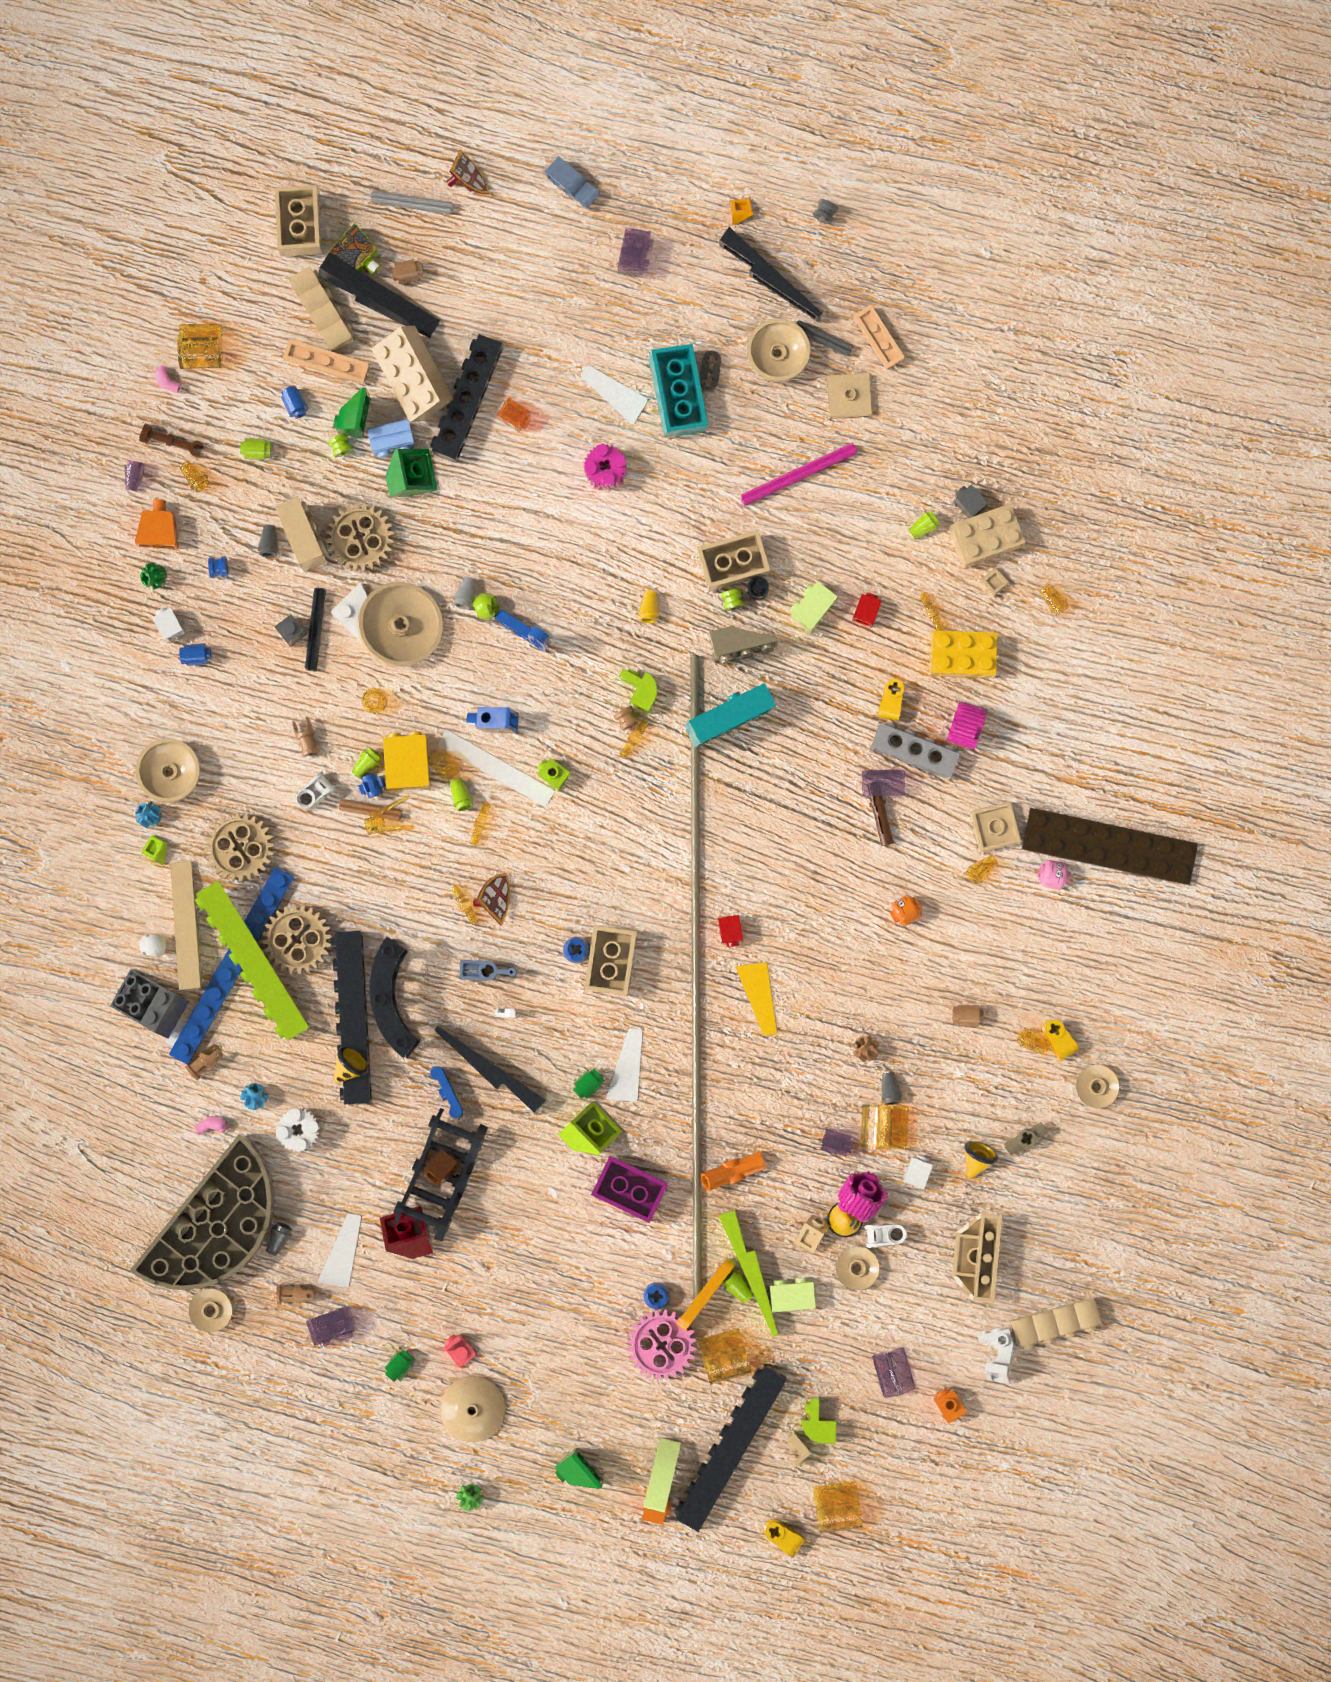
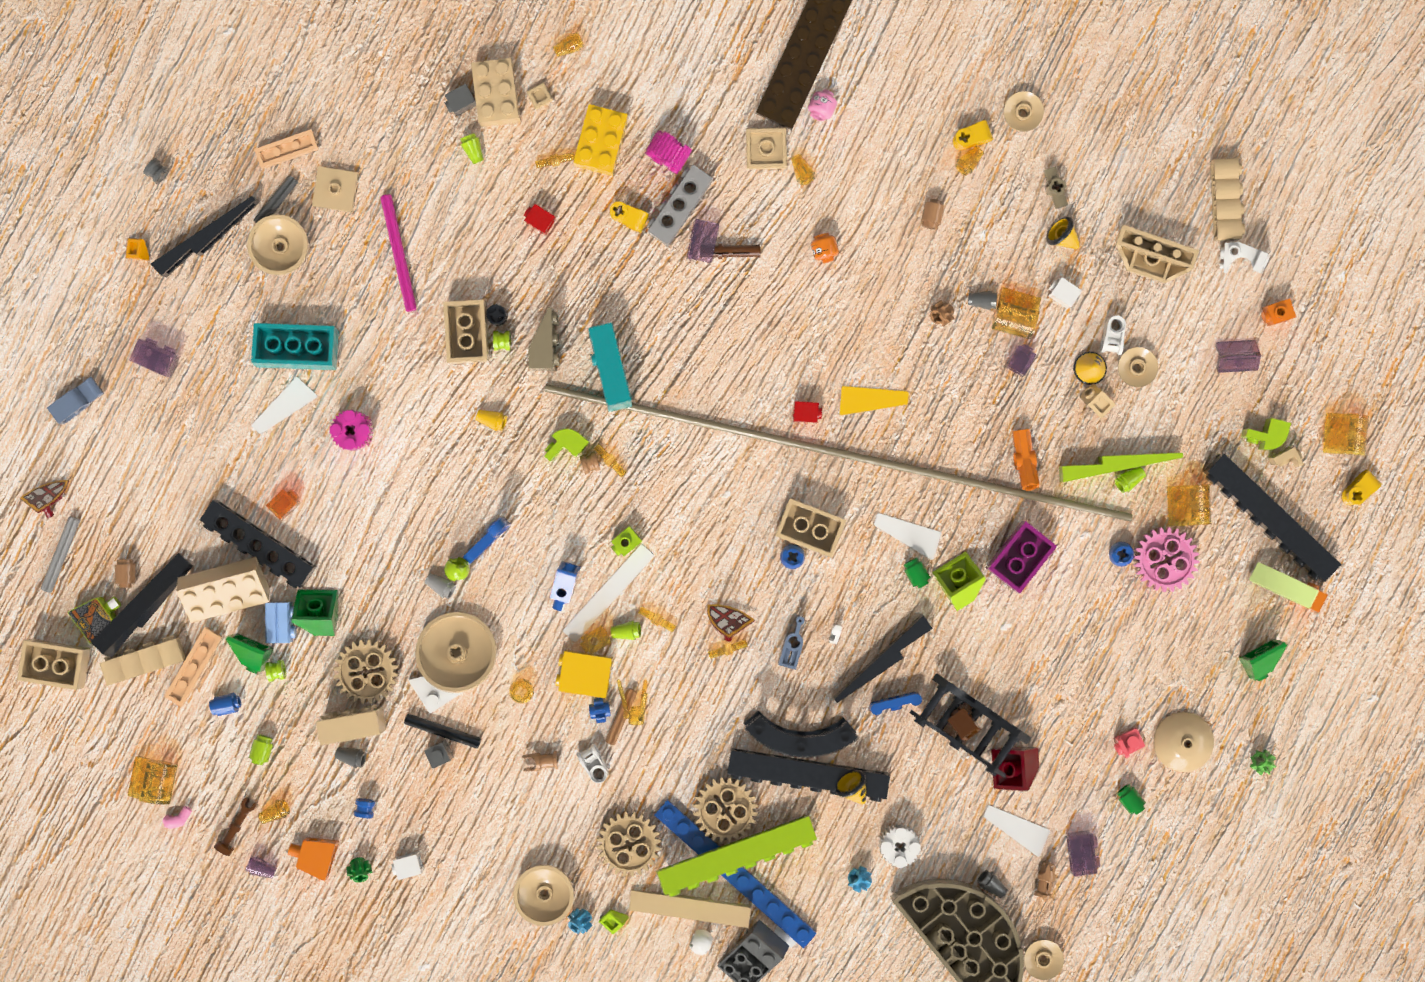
camera: 80 degrees left, 5 degrees up
(195, 654) = (441, 846): blue brick -> none
(206, 1060) = (817, 916): medium nougat piece -> none
(212, 1122) = (874, 922): bright pink arm -> none
(367, 761) = (576, 710): lime cone -> none
(705, 370) = (285, 308): clear smoke beam -> none
(705, 1294) = (1130, 509): light orange beam -> none
(792, 1295) = (1149, 431): yellowish green brick -> none
(813, 606) = (525, 267): yellowish green brick -> none
(862, 1196) = (1075, 347): dark pink brick -> none

